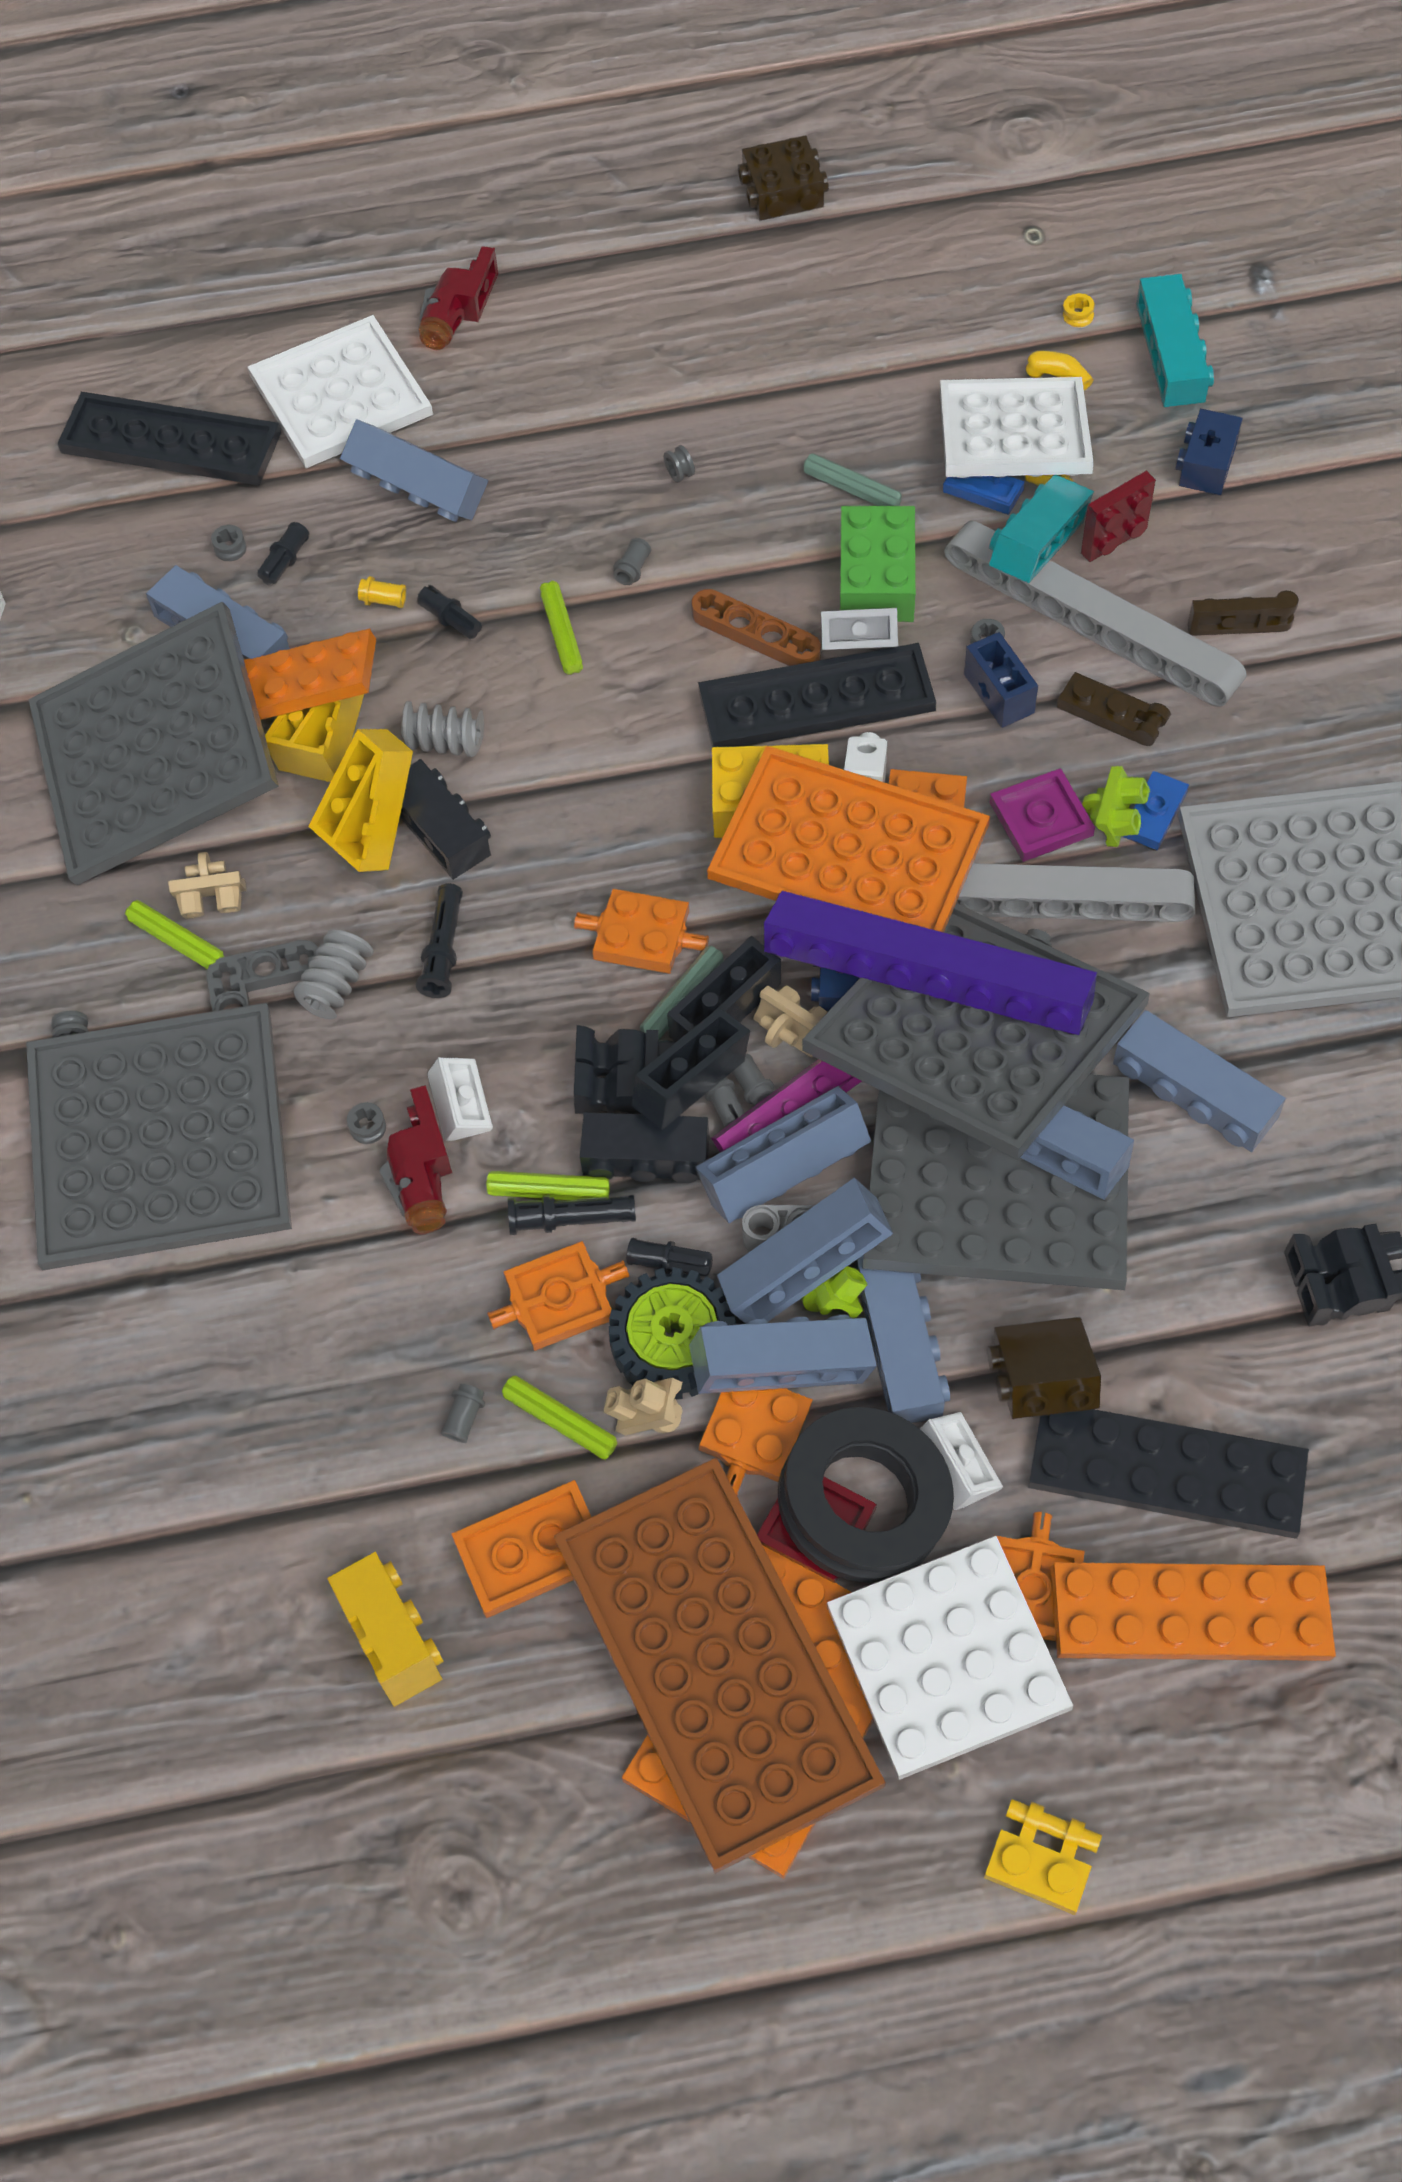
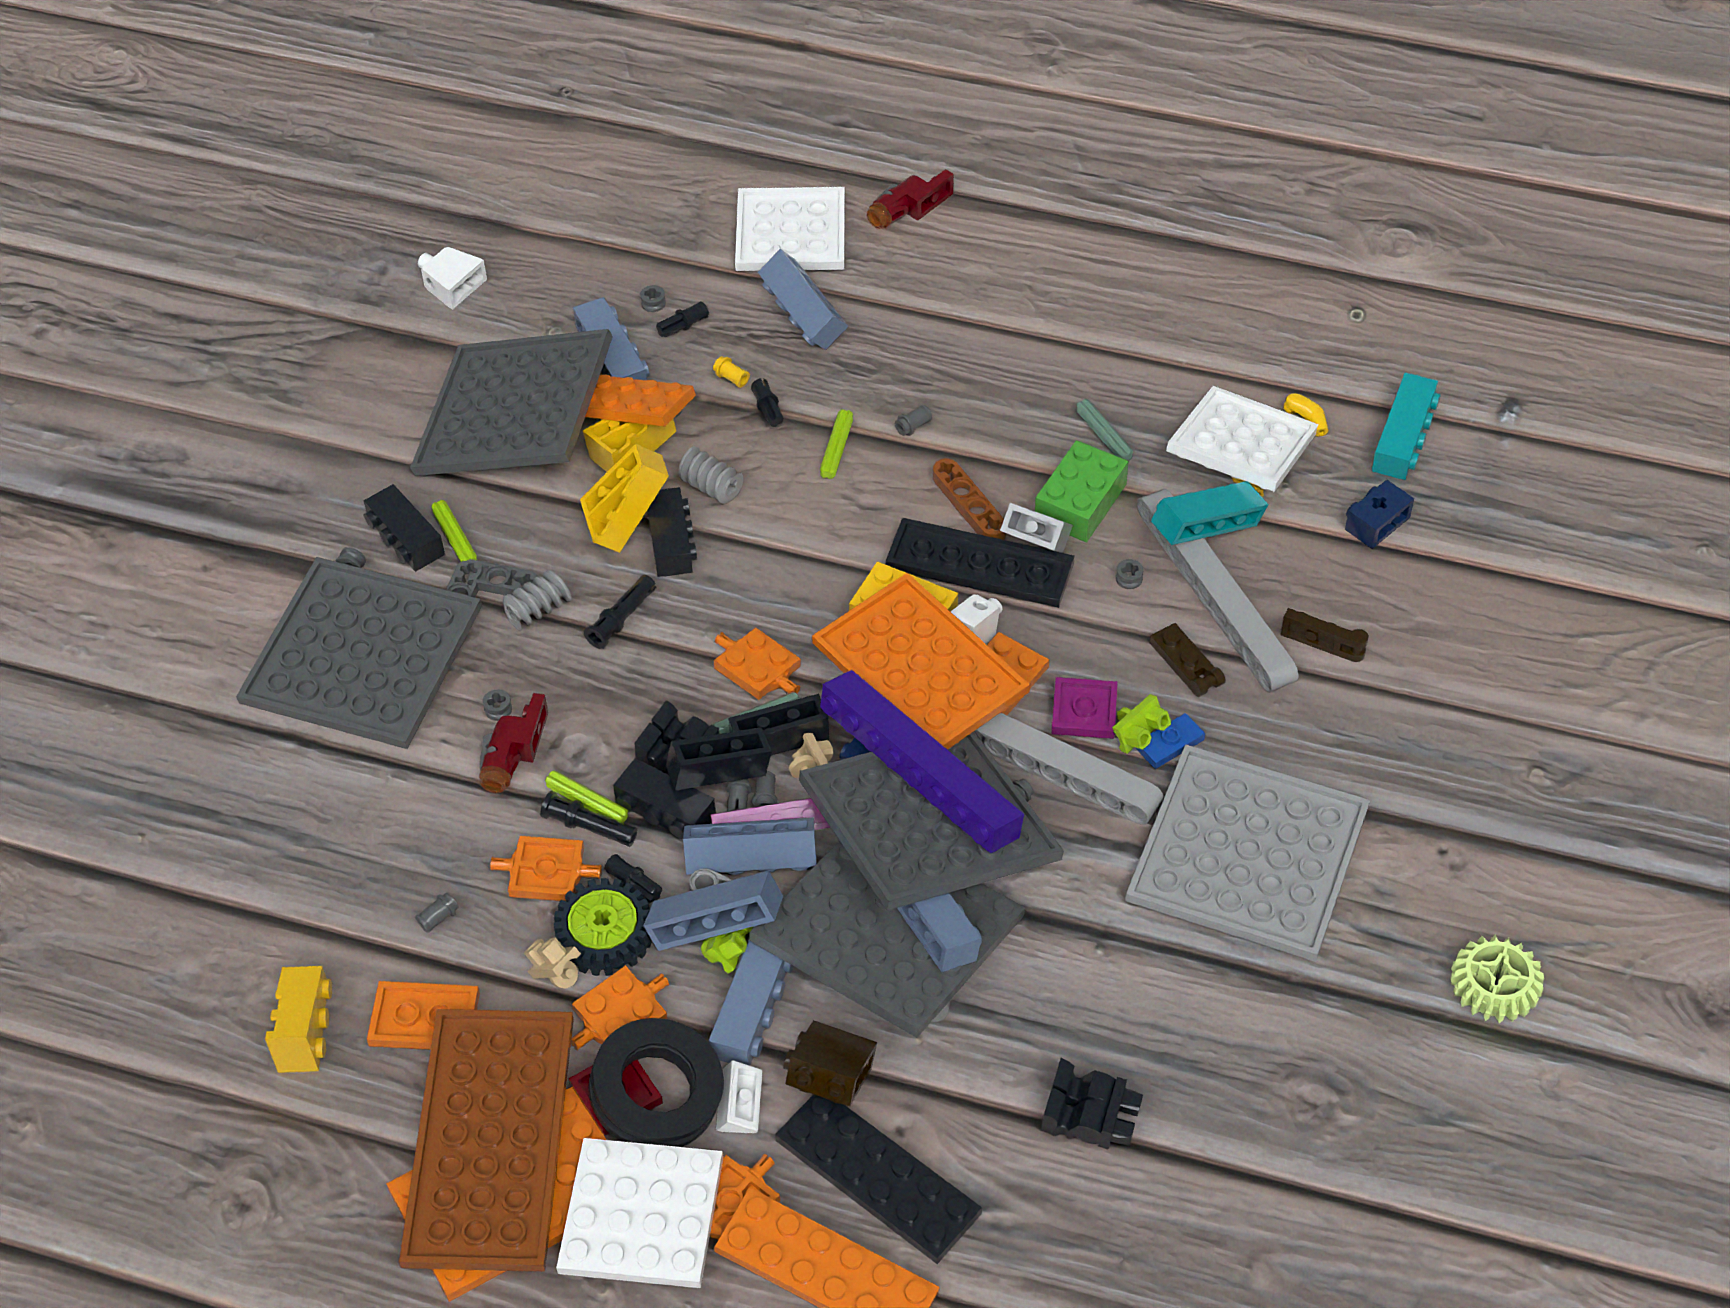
camera: 25 degrees right, 10 degrees down
(109, 956) = (403, 528): none -> black brick
(170, 438) = (658, 215): black plate -> none
(191, 890) = (494, 506): tan hips -> none
(459, 1098) = (568, 716): white slope -> none
(559, 1417) = (497, 945): lime axle -> none
(679, 463) = (989, 368): dark grey bush -> none
(781, 1354) = (660, 969): sand blue brick -> none
(783, 178) = (1193, 204): dark brown brick -> none
(987, 491) = (1195, 474): blue plate -> none
(1000, 679) = (1113, 604): dark blue brick -> none
(1082, 318) = (1356, 383): yellow bush -> none
(1118, 516) = (1273, 528): dark red plate -> none
(1198, 1081) = (1072, 932): sand blue brick -> none

